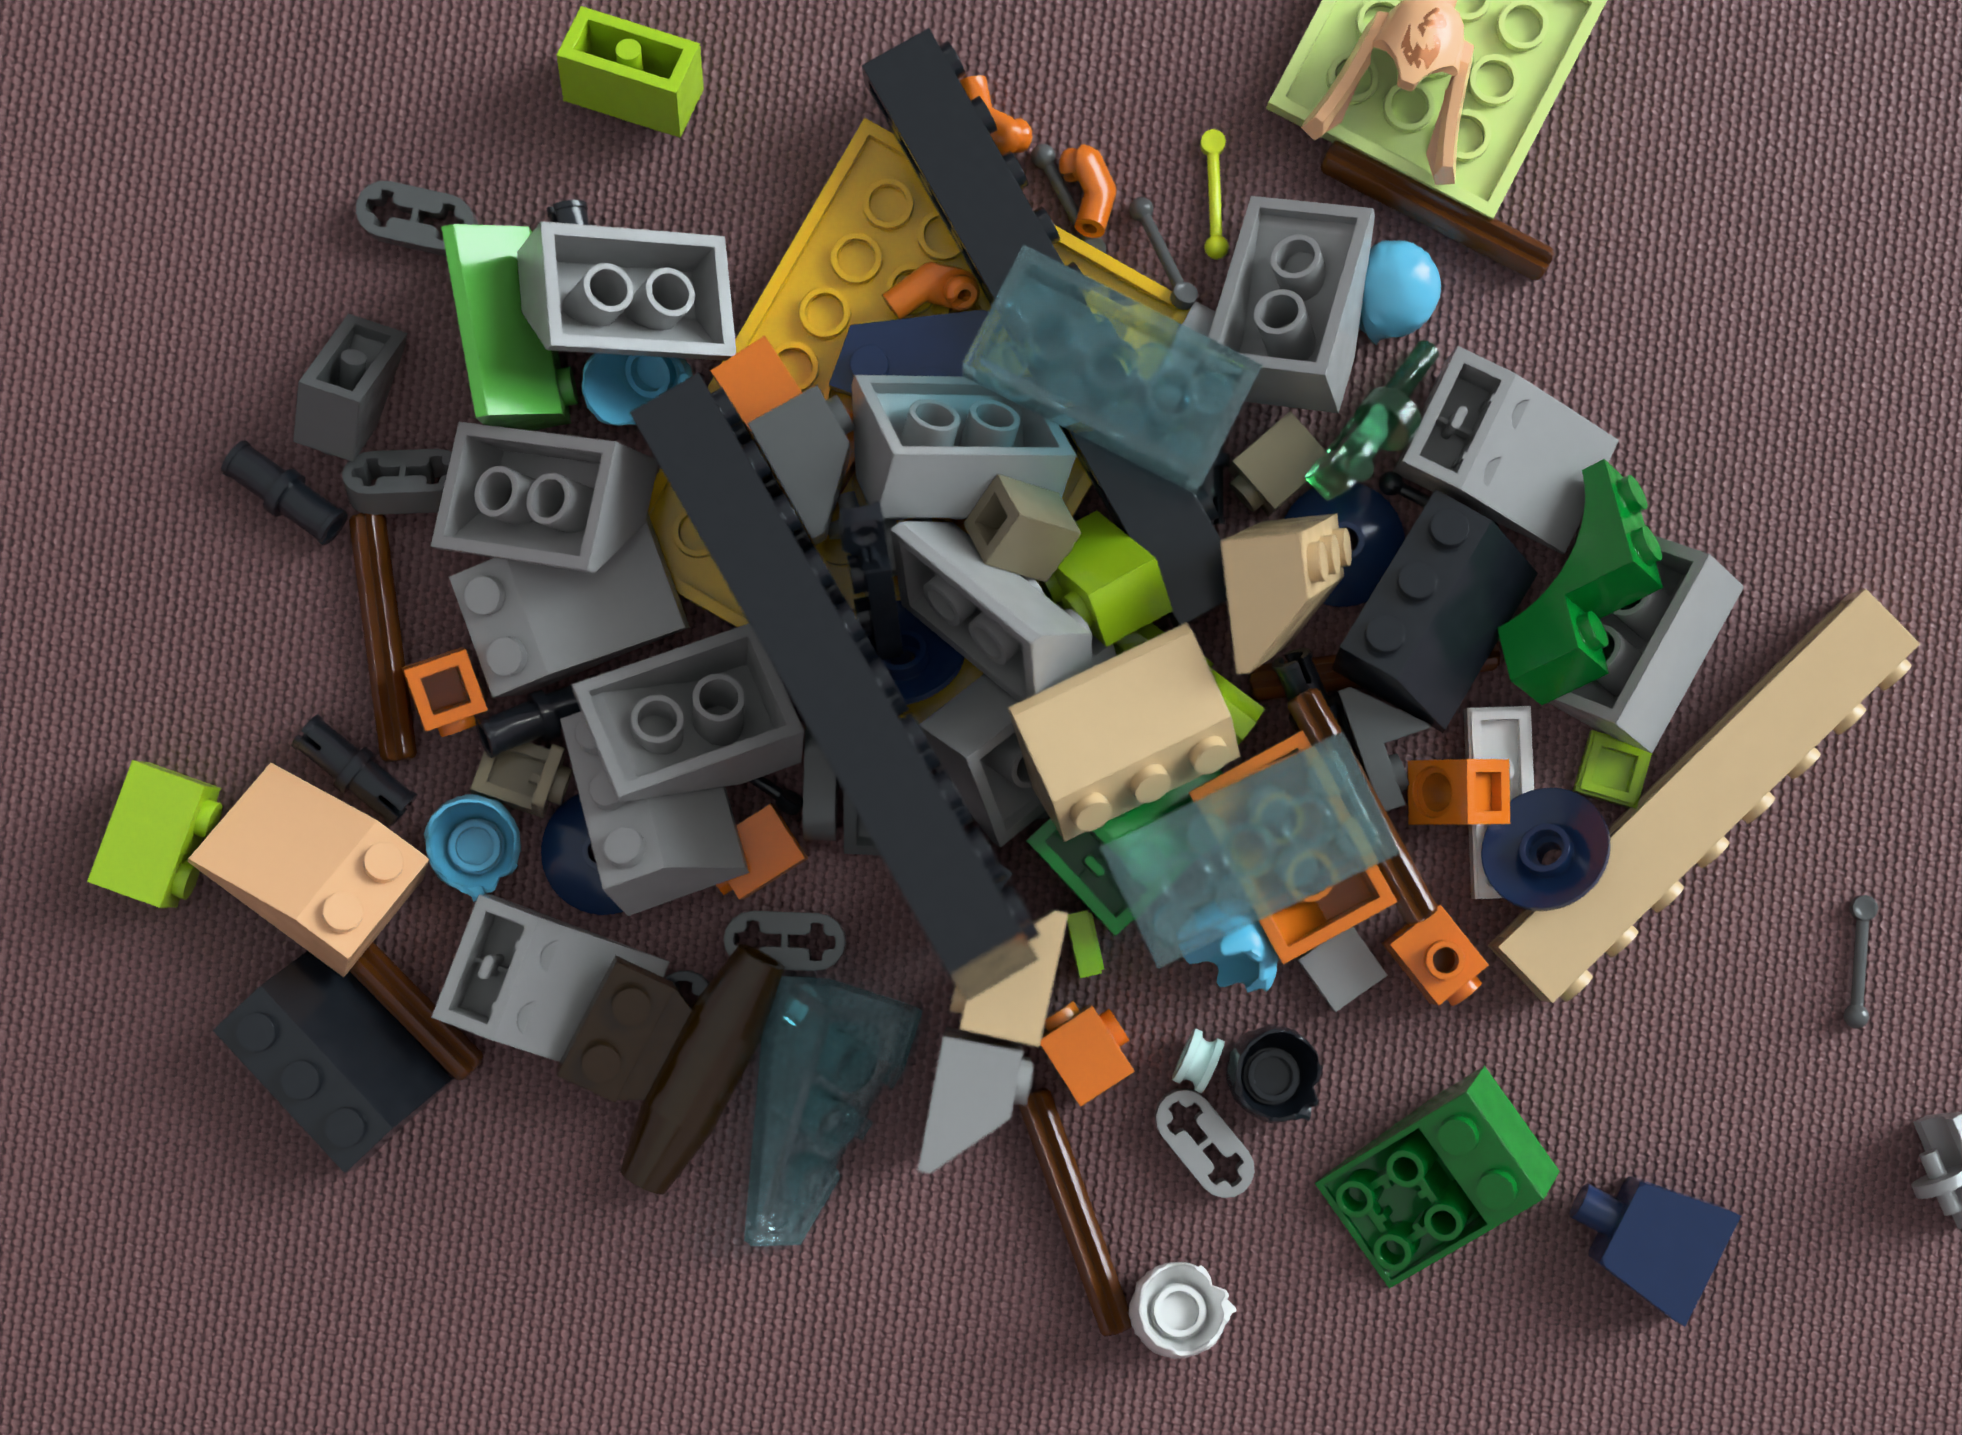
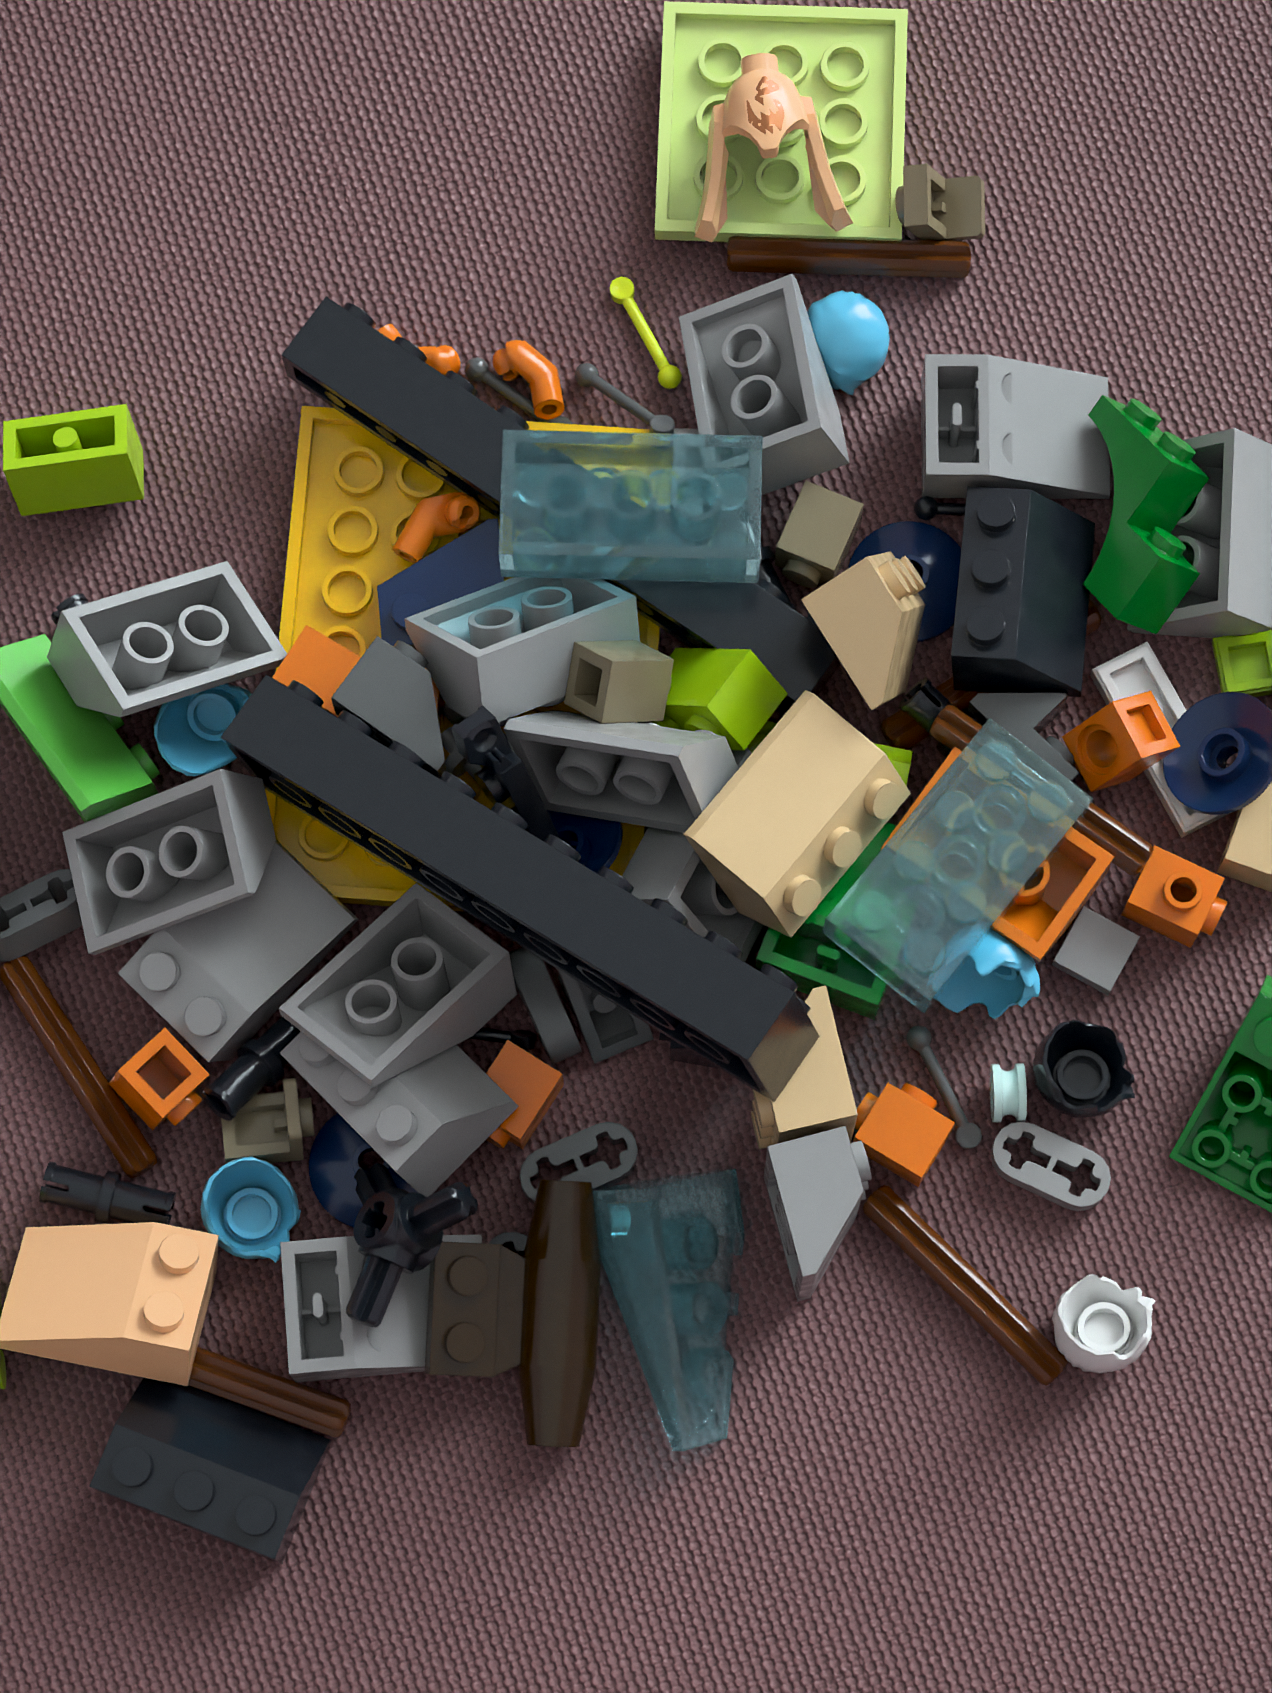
camera: 25 degrees left, 10 degrees down
(582, 942) = (398, 1235): none -> black bush
(1084, 943) = (855, 1037): lime tile -> none
(1144, 1077) = (967, 1134): none -> dark grey hinge
(1381, 421) = (890, 448): clear green piece -> none
(1545, 204) = (940, 206): none -> dark tan bracket

